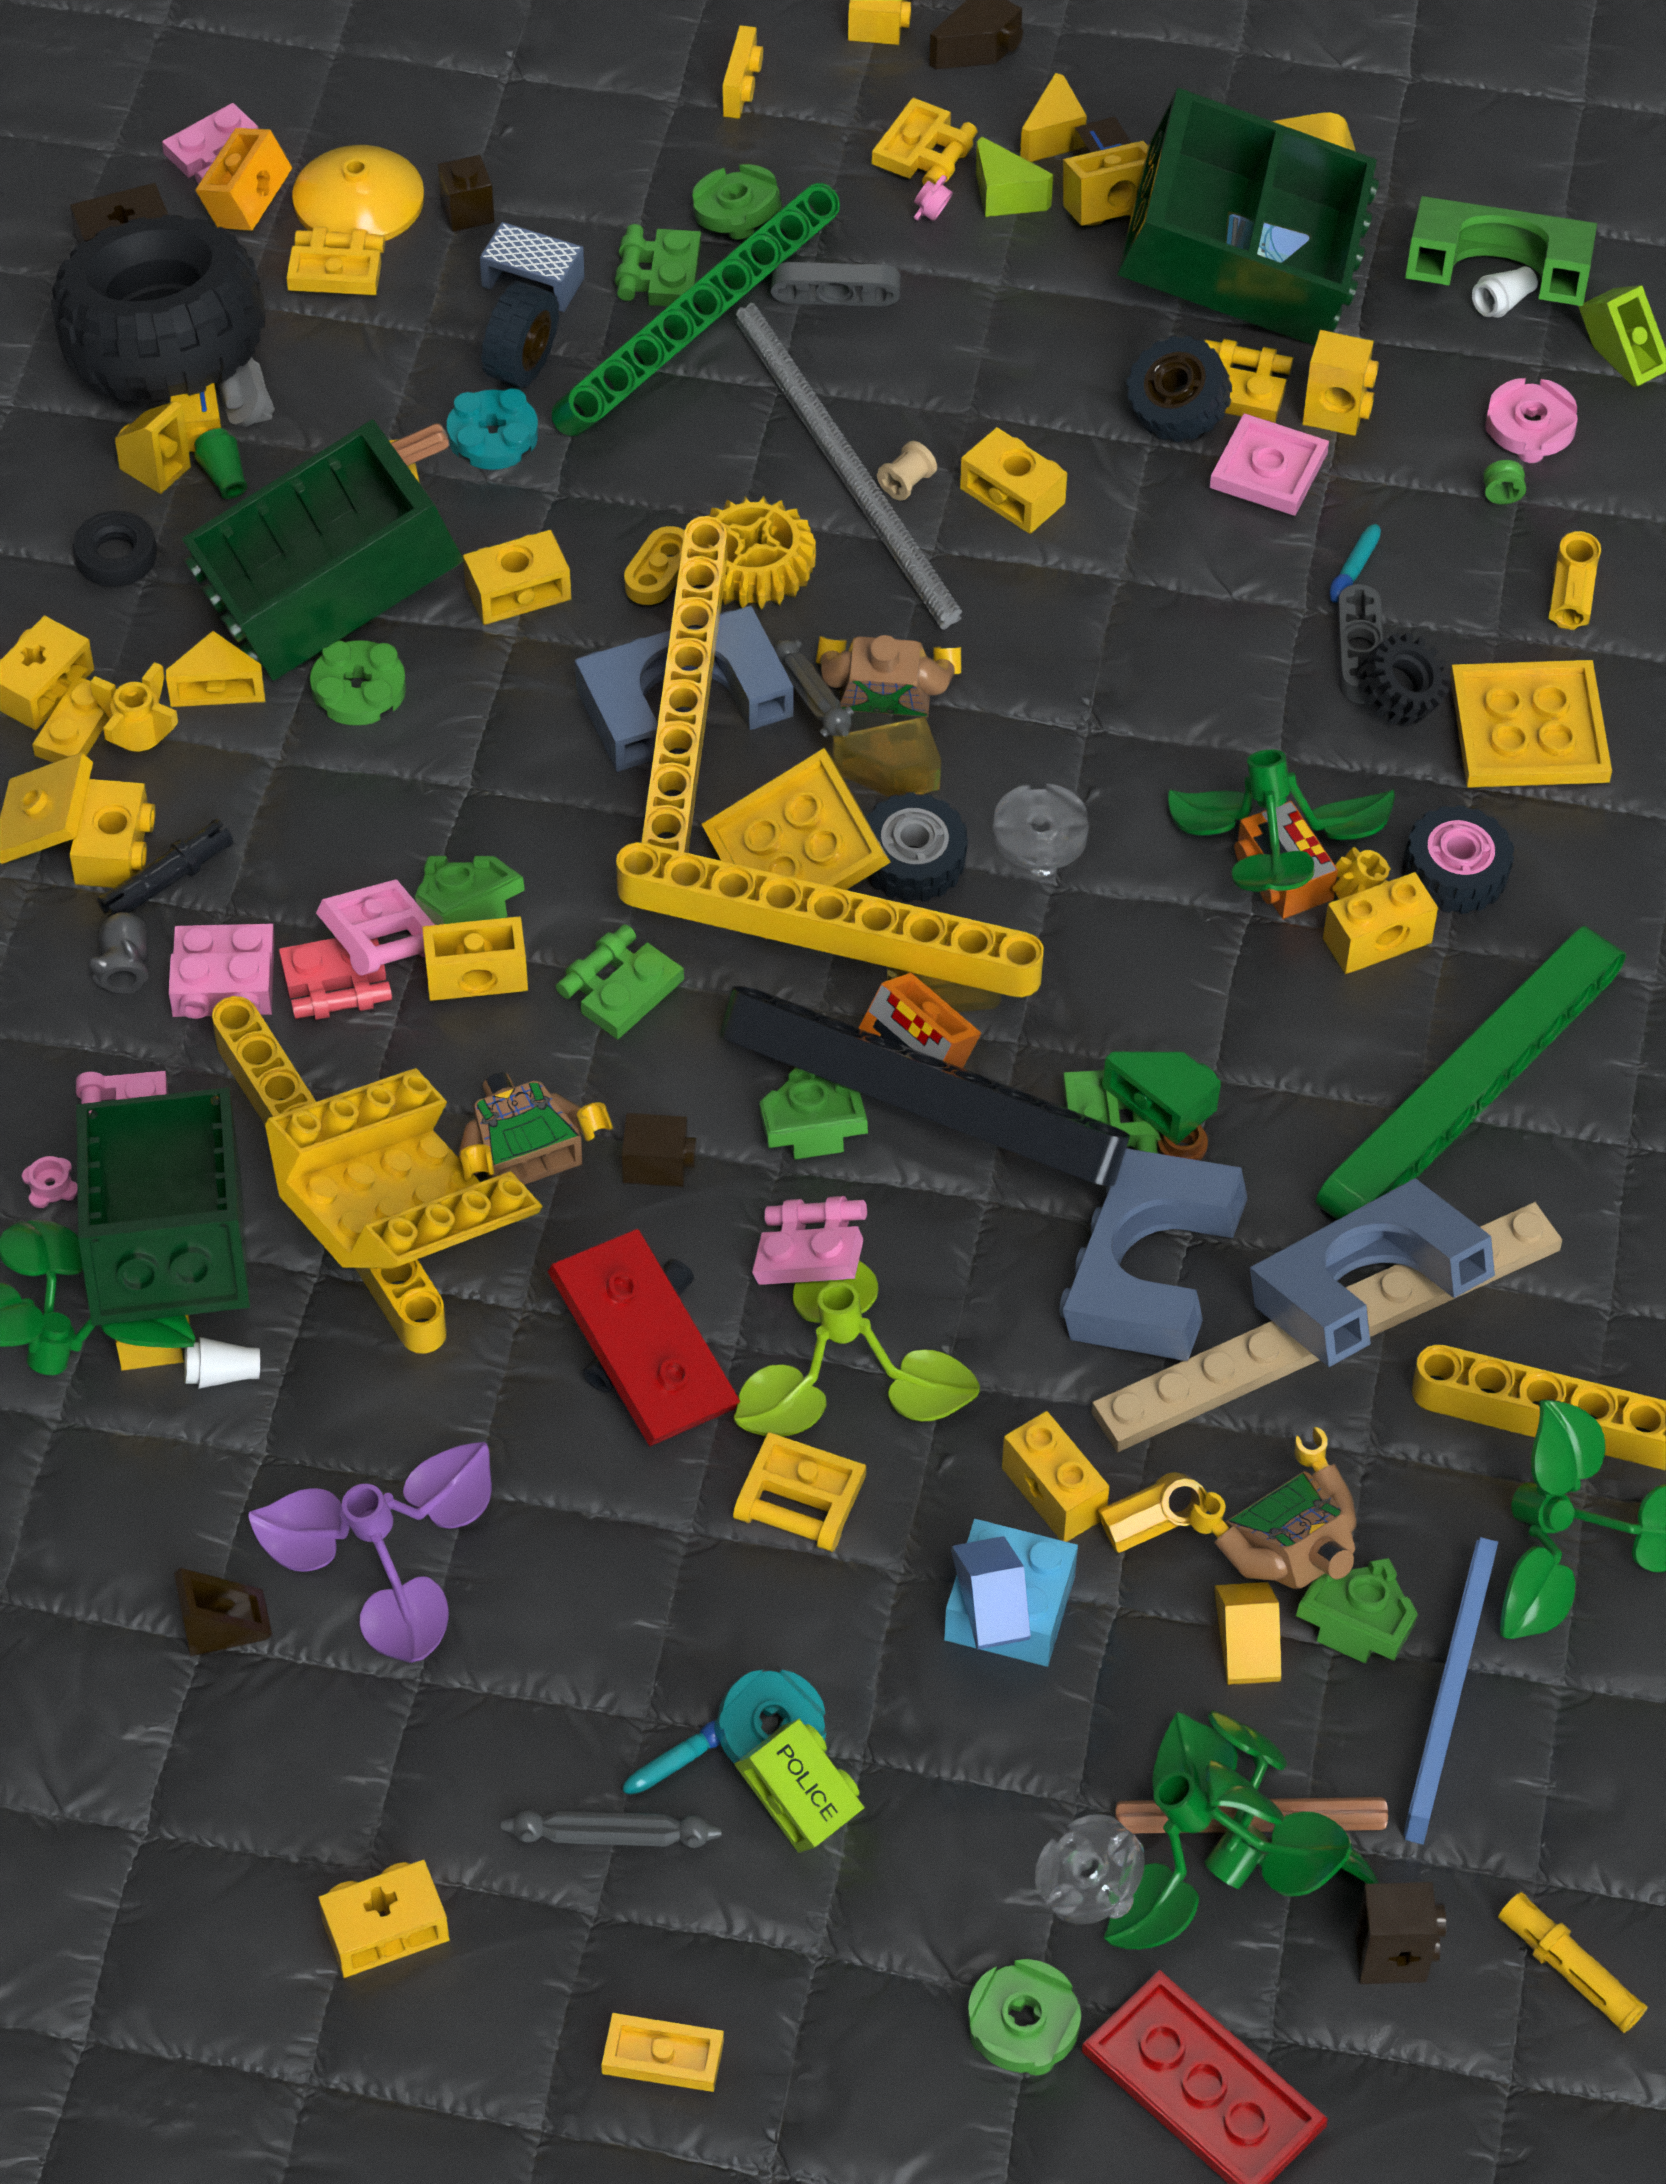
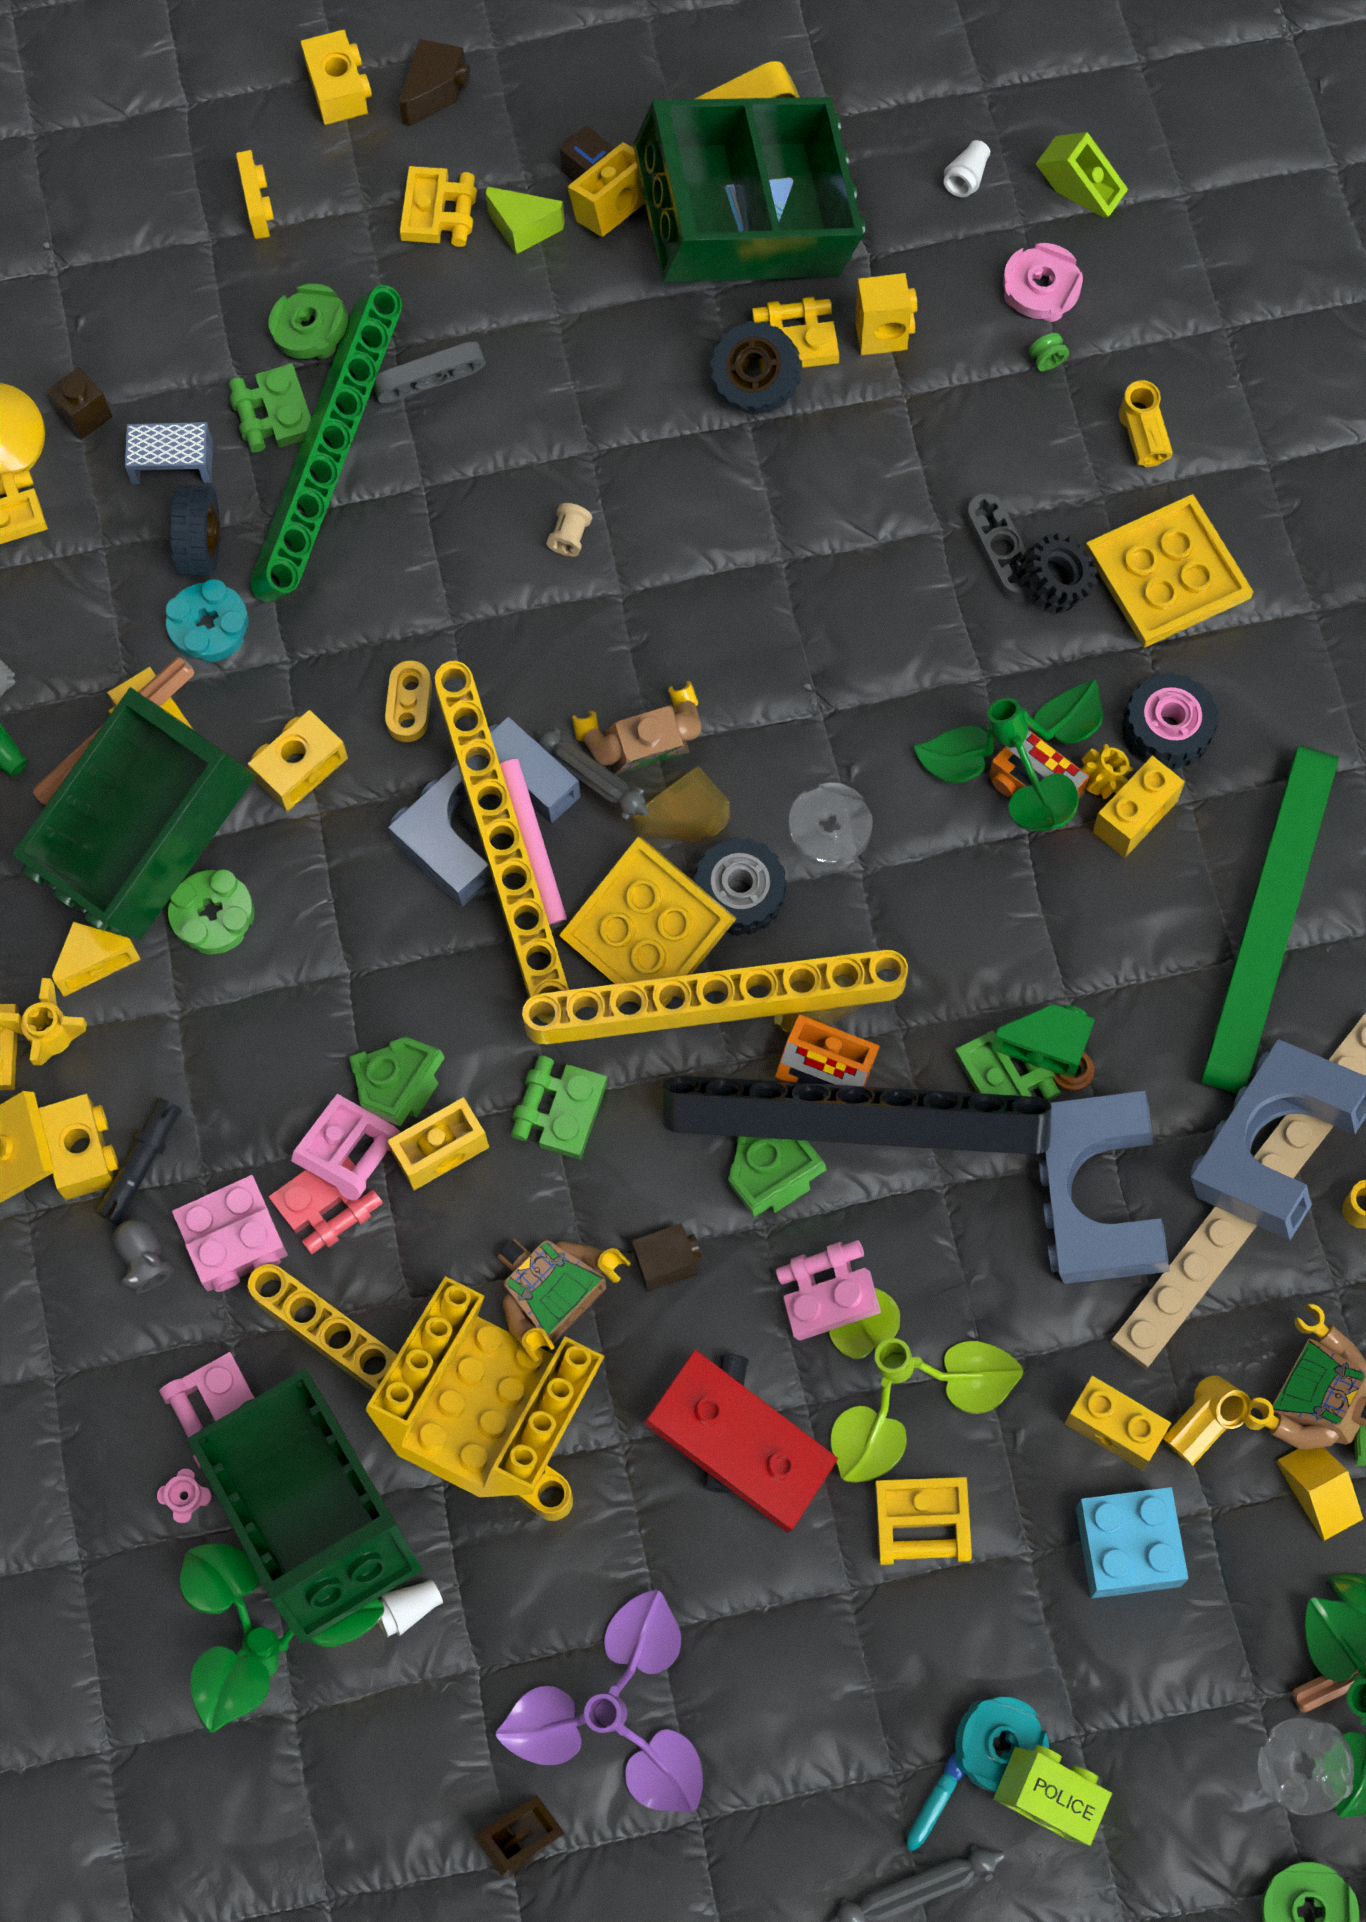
camera: 20 degrees left, 15 degrees up
(717, 727) = (533, 841): none -> bright pink piece
(766, 551) = (512, 665): yellow gear -> none
(848, 467) = (516, 542): light grey axle -> none
(932, 199) = (470, 258): bright pink plate -> none
(993, 1591) = (1131, 1564): slope -> none
(1013, 480) = (674, 521): yellow brick -> none
(1052, 122) = (537, 145): yellow slope -> none
(1269, 464) = (856, 408): bright pink plate -> none
(1355, 561) = (963, 472): teal piece -> none
(1458, 230) = (989, 112): bright green arch -> none

